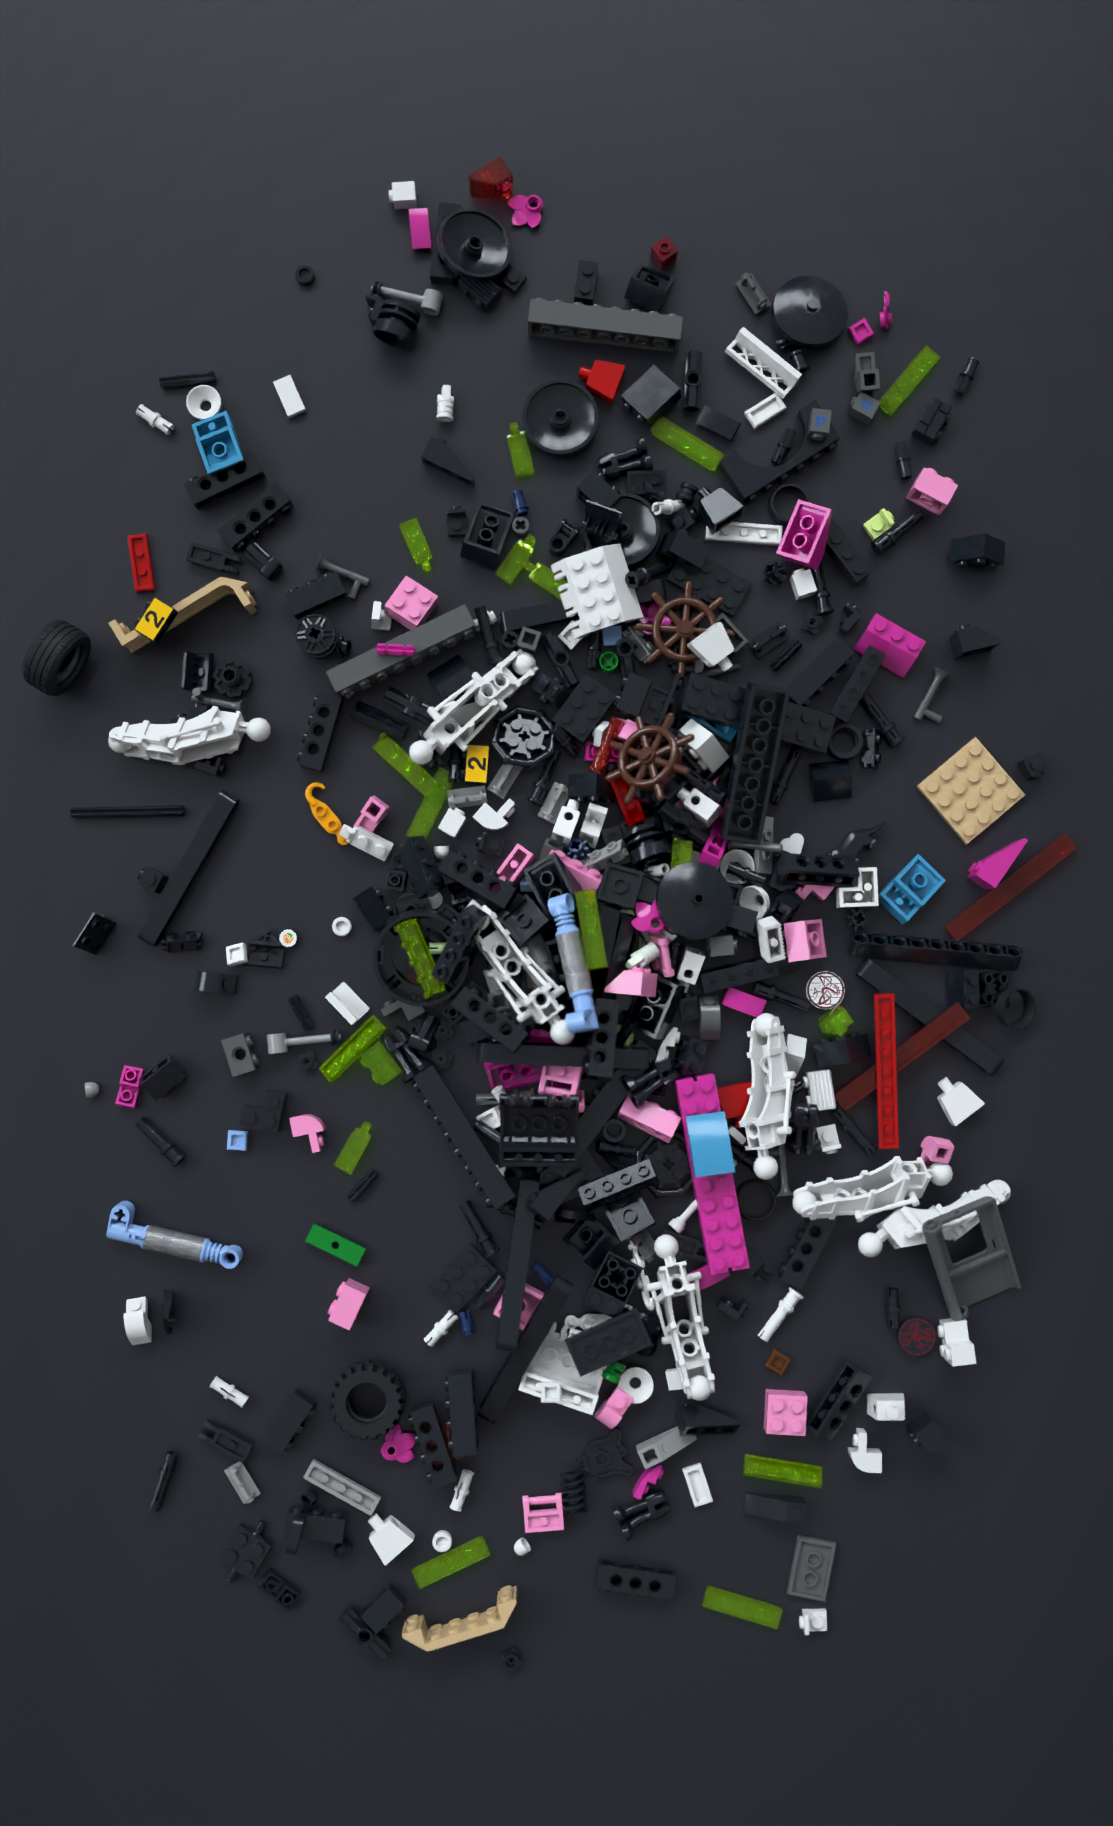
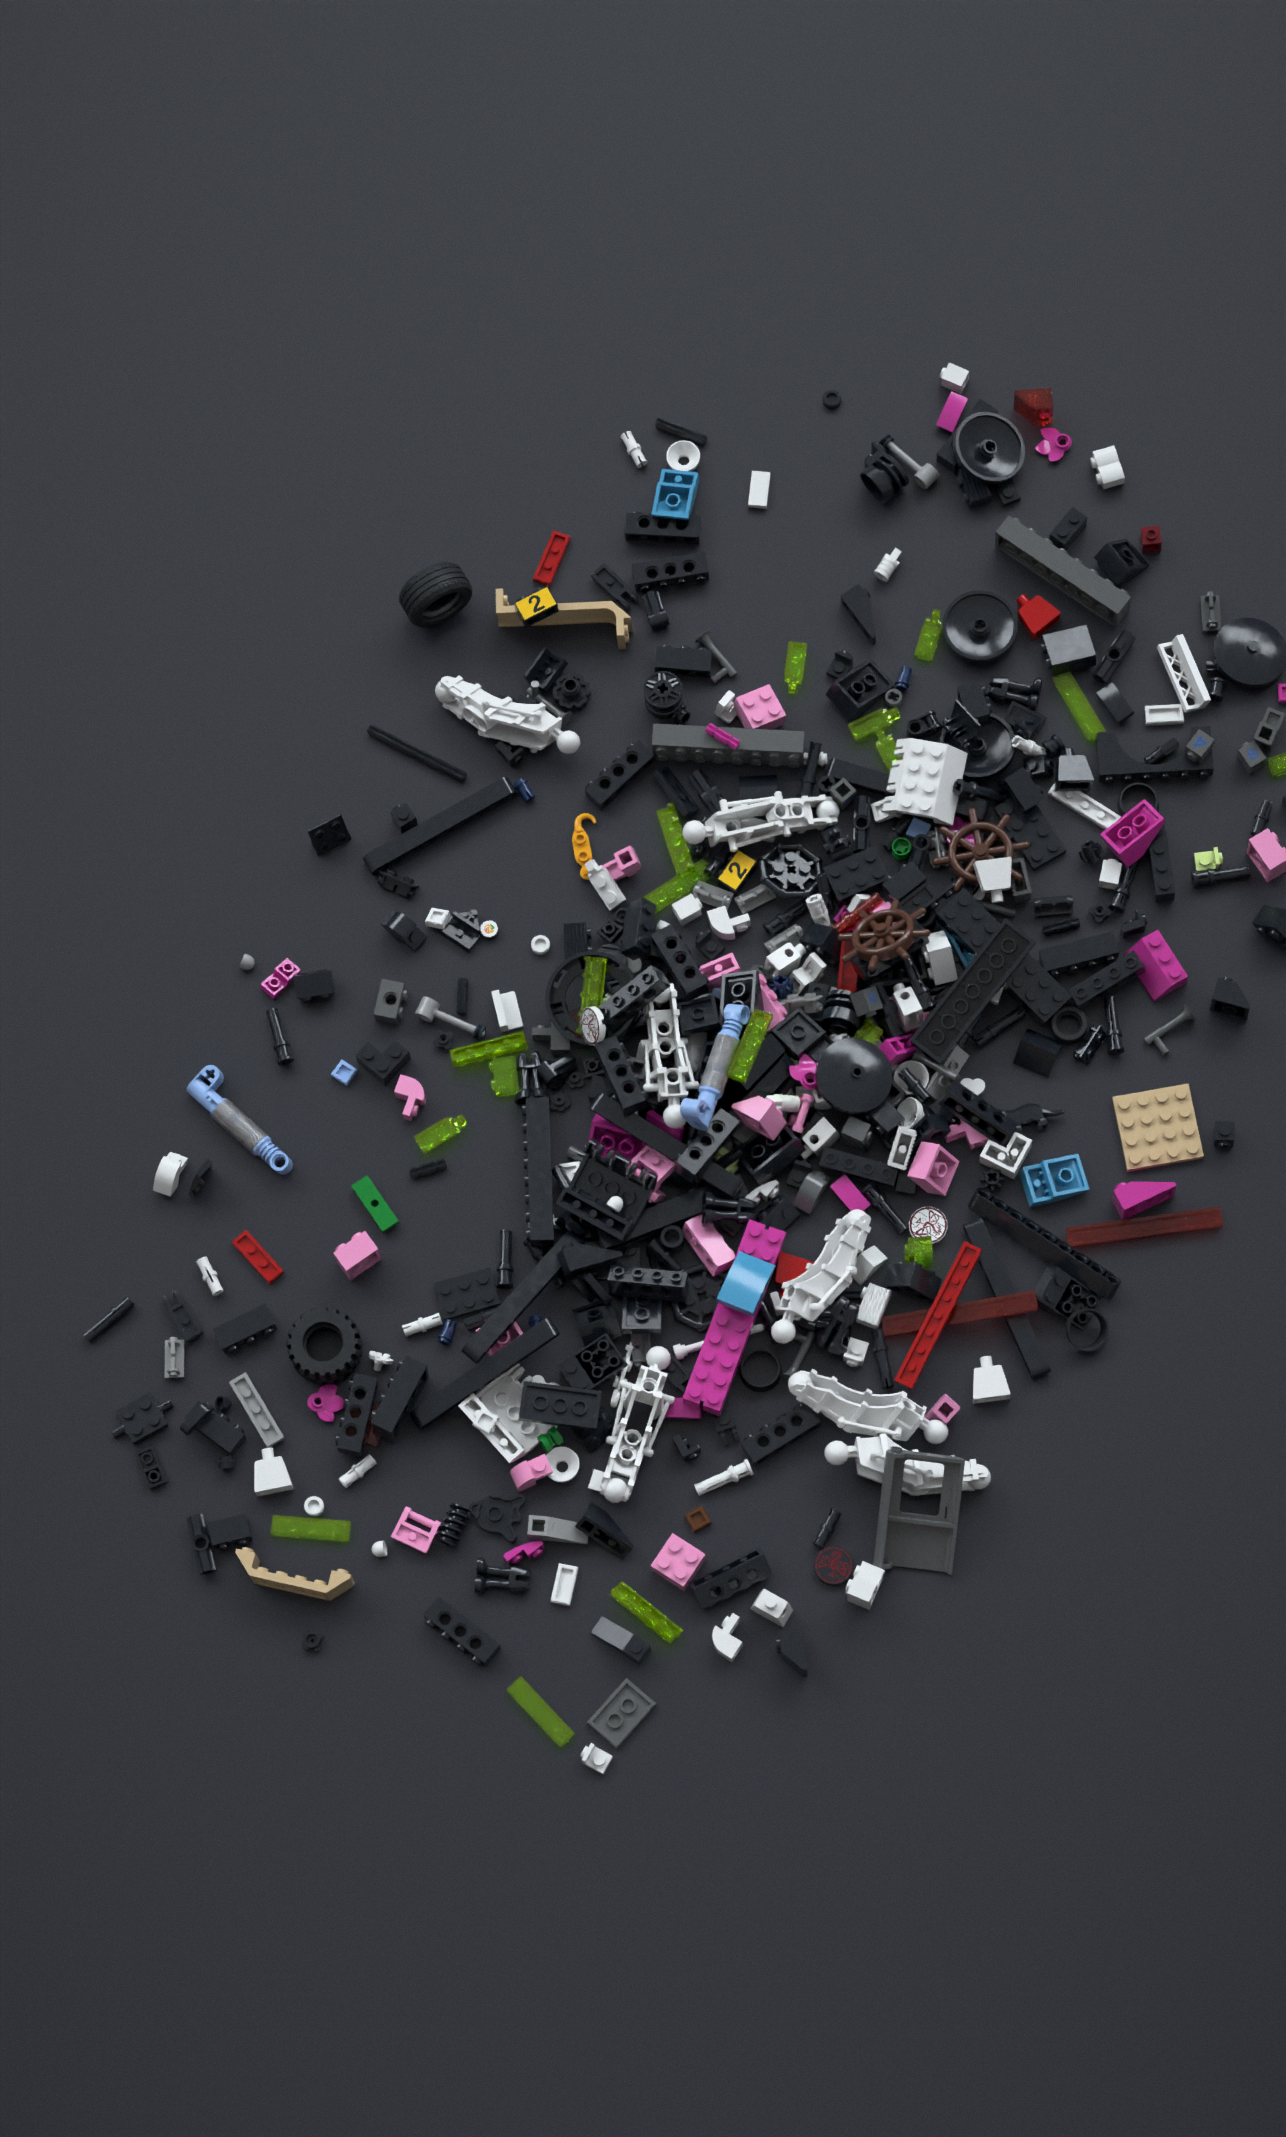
camera: 40 degrees right, 15 degrees down
(241, 791) = (524, 789): none -> dark blue pin
(260, 1349) = (257, 1257): none -> red tile
(422, 1380) = (379, 1359): none -> white plant
(437, 987) = (592, 1026): none -> white tile
(553, 1137) = (615, 1203): none -> white hinge
(569, 760) = (818, 909): none -> white hinge
(587, 205) = (1108, 467): none -> white brick
(666, 826) = (866, 1002): none -> dark grey brick

